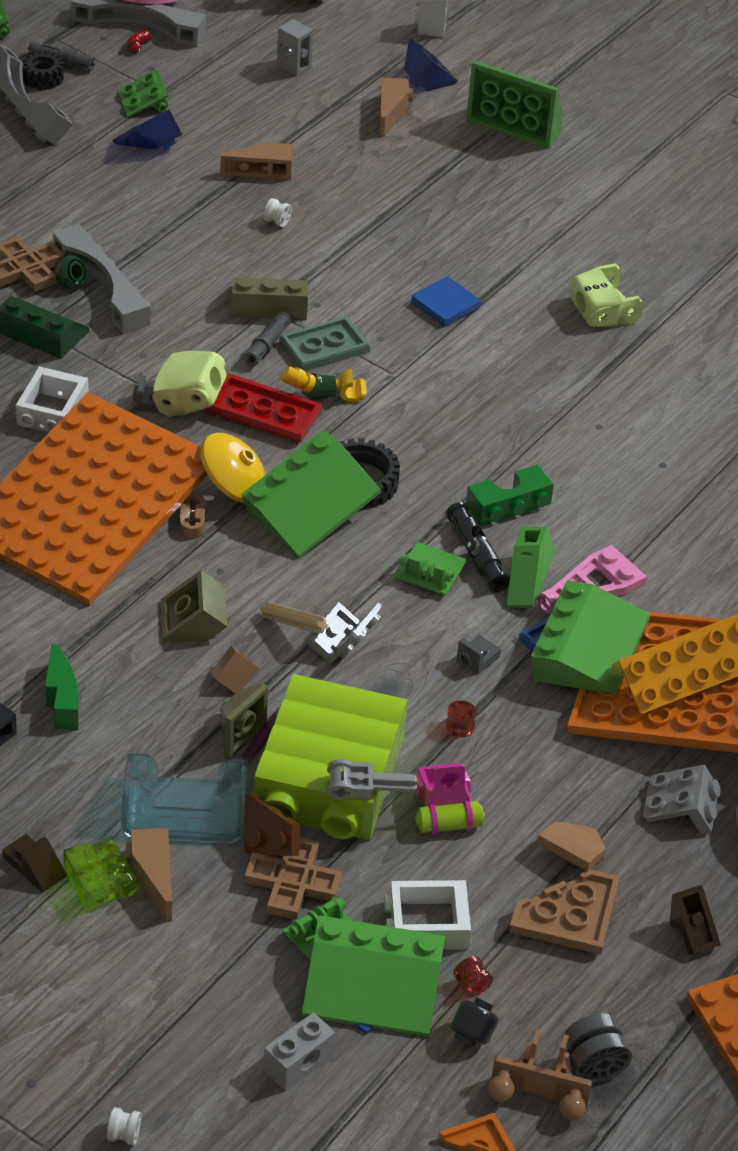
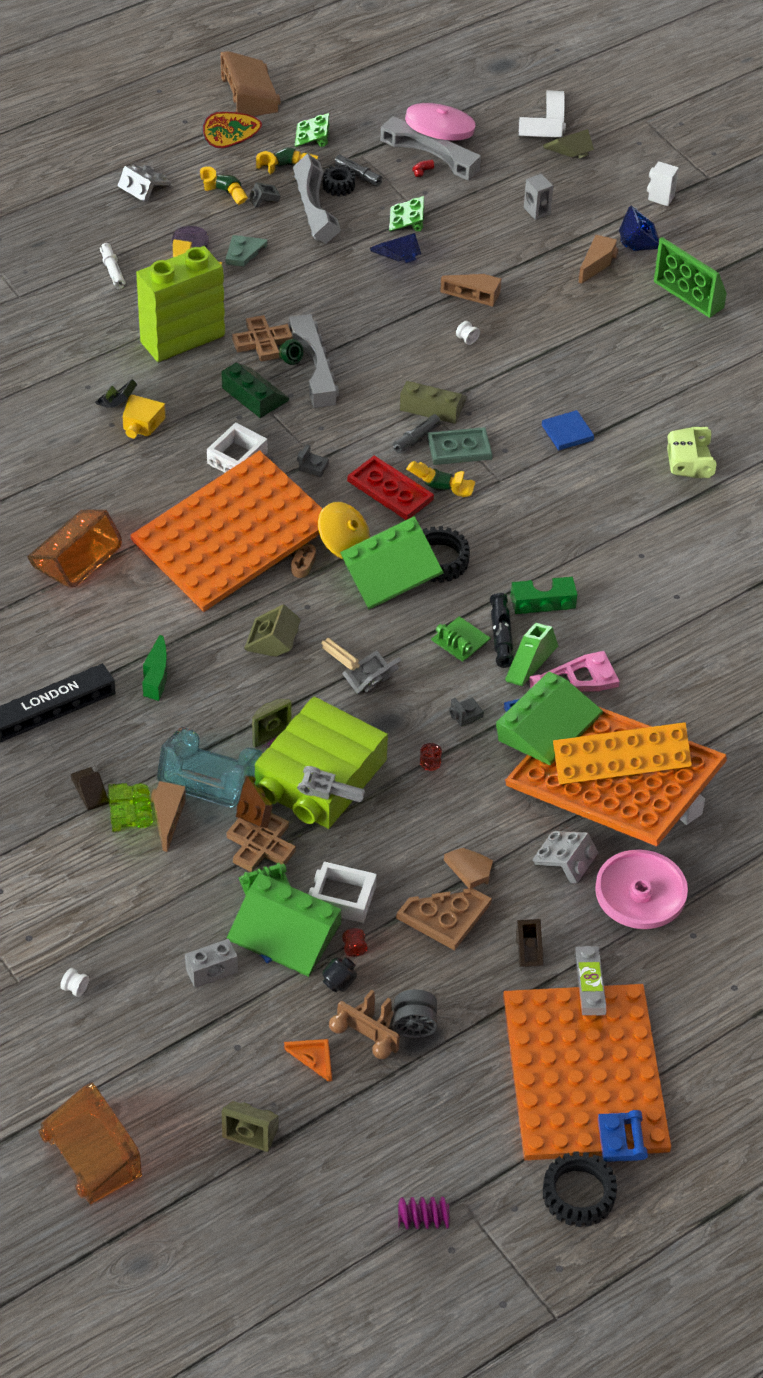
camera: 20 degrees right, 5 degrees up
(189, 375) = (339, 452): yellowish green piece -> none
(234, 670) = (283, 683): medium nougat panel -> none
(446, 800) = (391, 813): dark pink piece -> none

